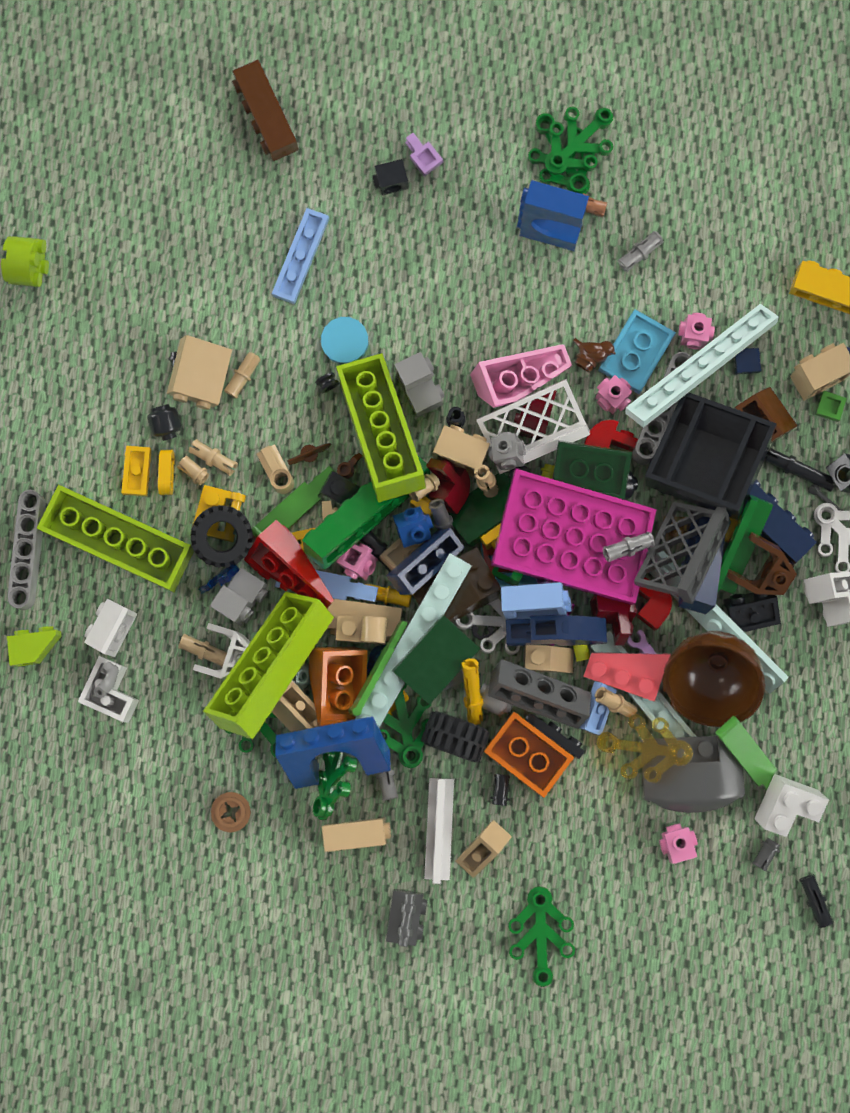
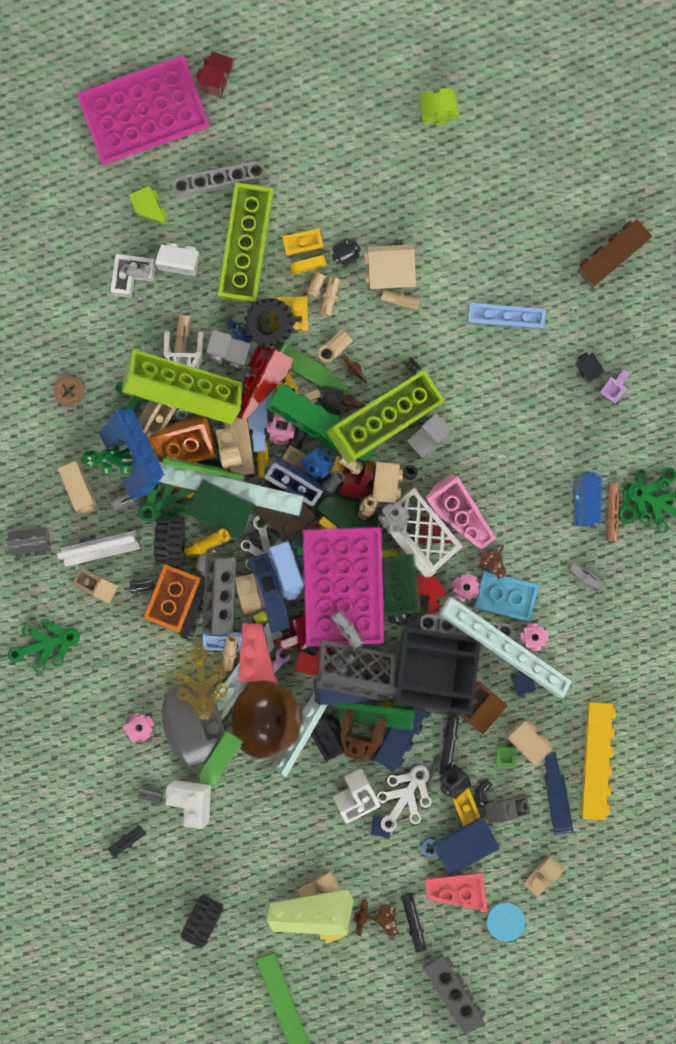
camera: 70 degrees right, 5 degrees up
(344, 340) = (450, 369): medium azure tile -> none

